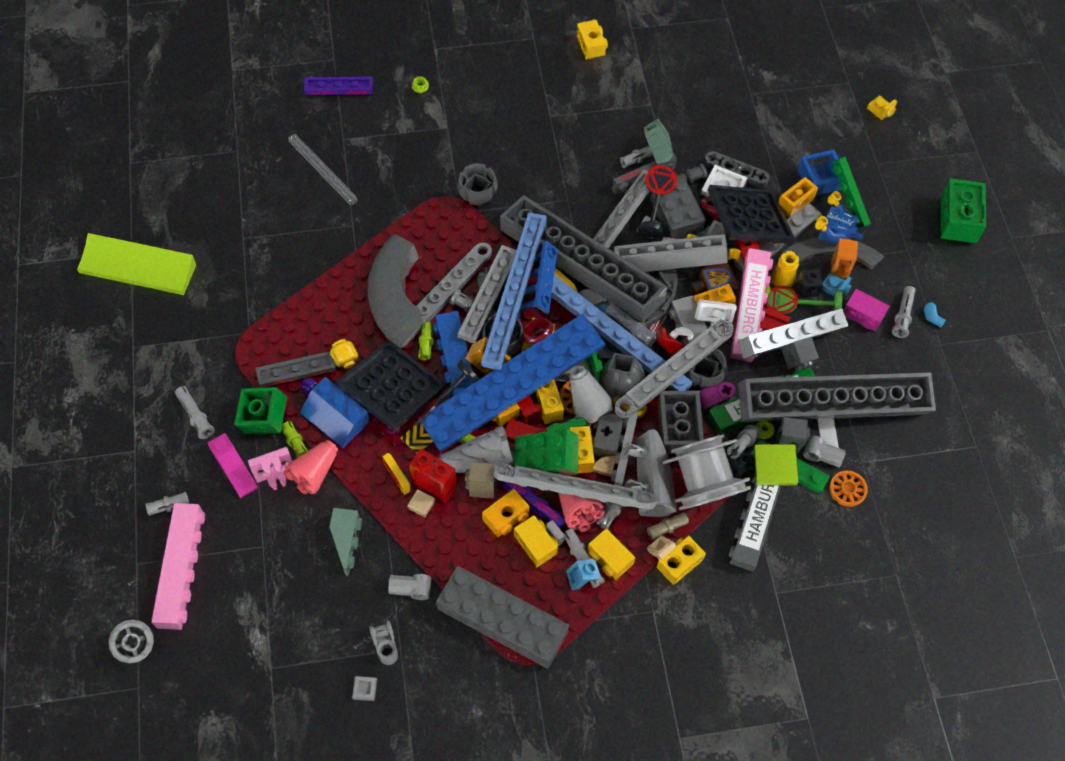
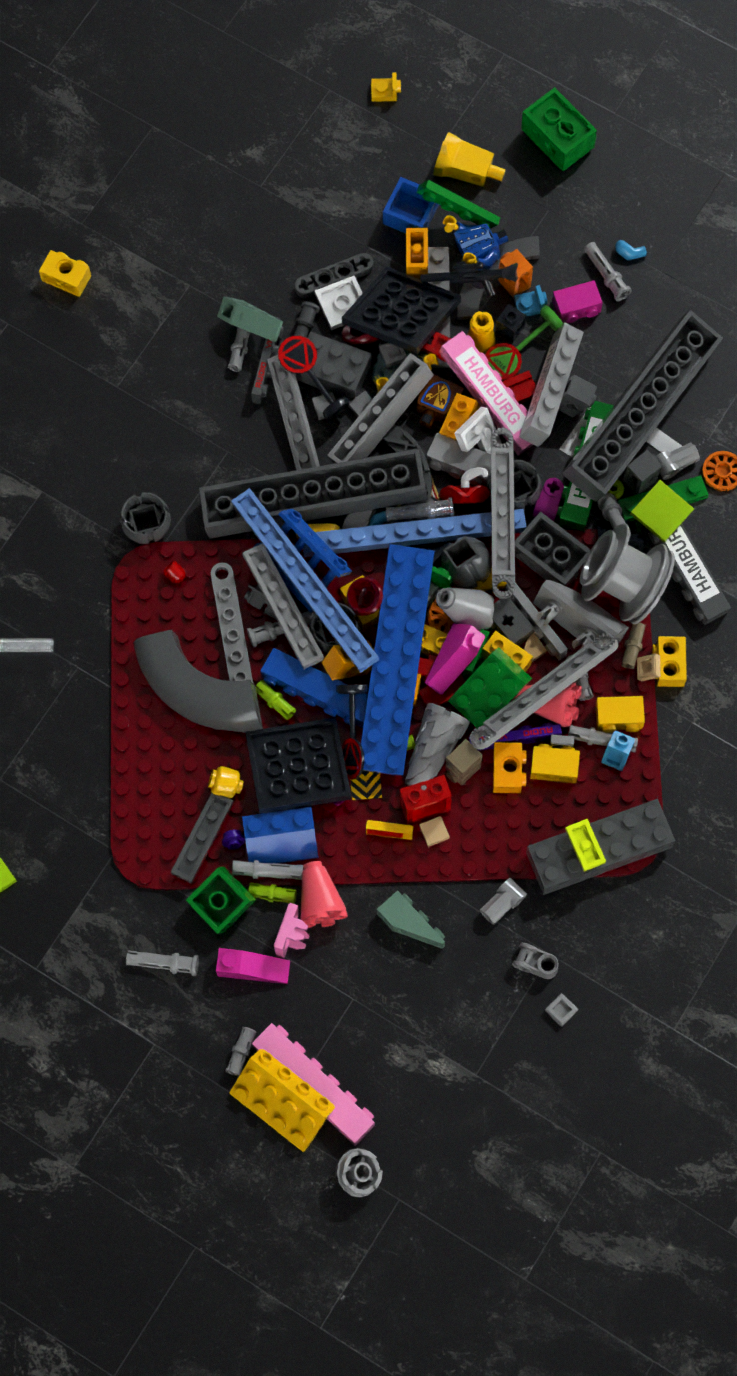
camera: 45 degrees left, 10 degrees up
(150, 552) = (282, 1099): none -> yellow bracket
(300, 415) = (267, 870): none -> light grey pin
(459, 226) = (175, 572): none -> red piece
(488, 600) = (585, 845): none -> neon yellow plate
(547, 415) = (455, 655): none -> dark pink slope
(816, 237) = (467, 274): none -> black piece
(884, 180) = (466, 162): none -> yellow piece

